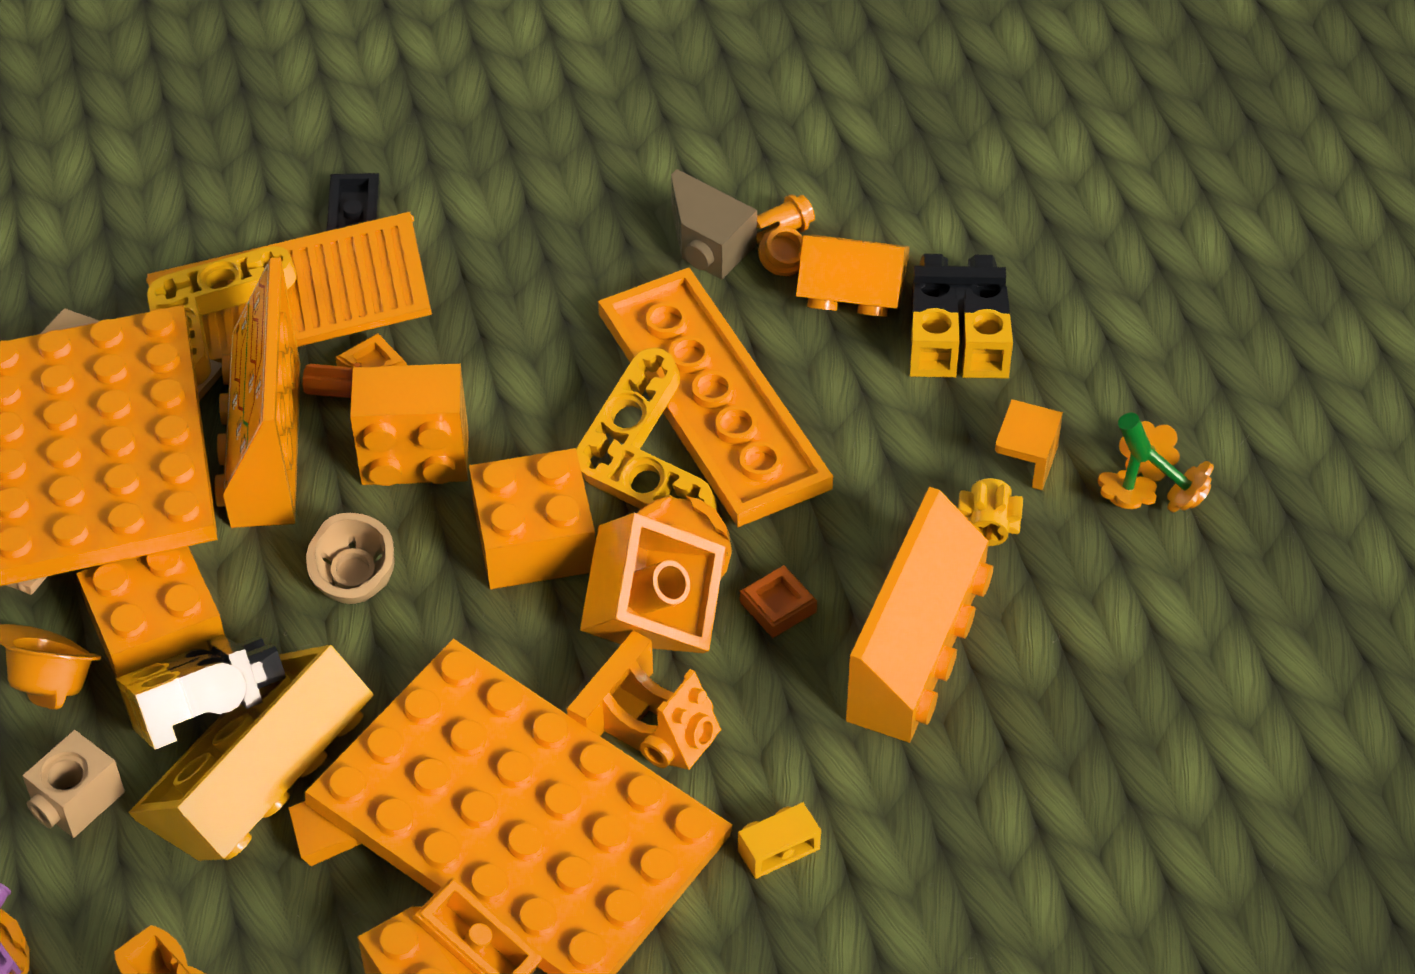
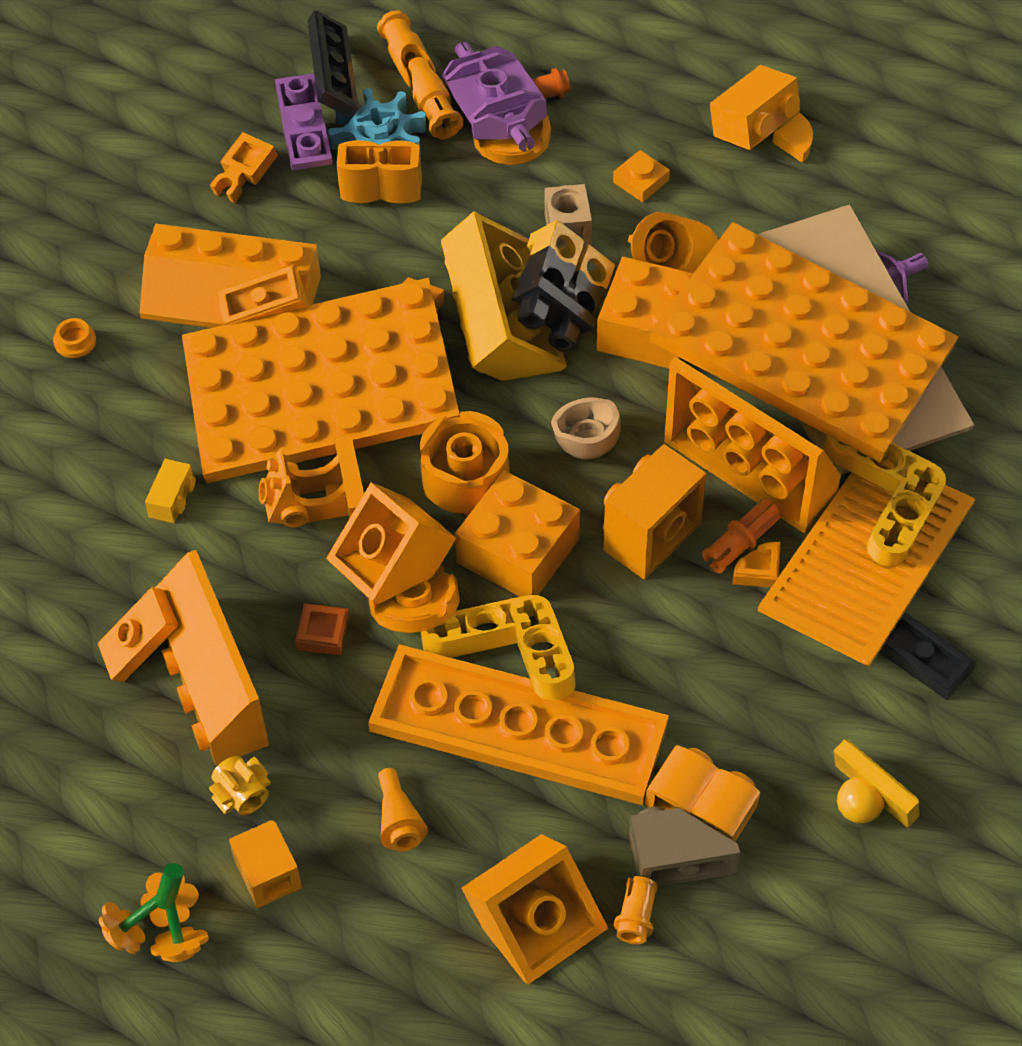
camera: 135 degrees right, 5 degrees up
(500, 605) = (462, 460): none -> light orange brick
(533, 158) = (871, 789): none -> yellow tile
(643, 238) = (702, 790): none -> light orange brick
(781, 251) = (605, 880): light orange plate -> none
(886, 397) = (400, 822): none -> light orange cone
(957, 298) = (417, 933): hips -> none
(957, 692) = (137, 634): none -> light orange plate

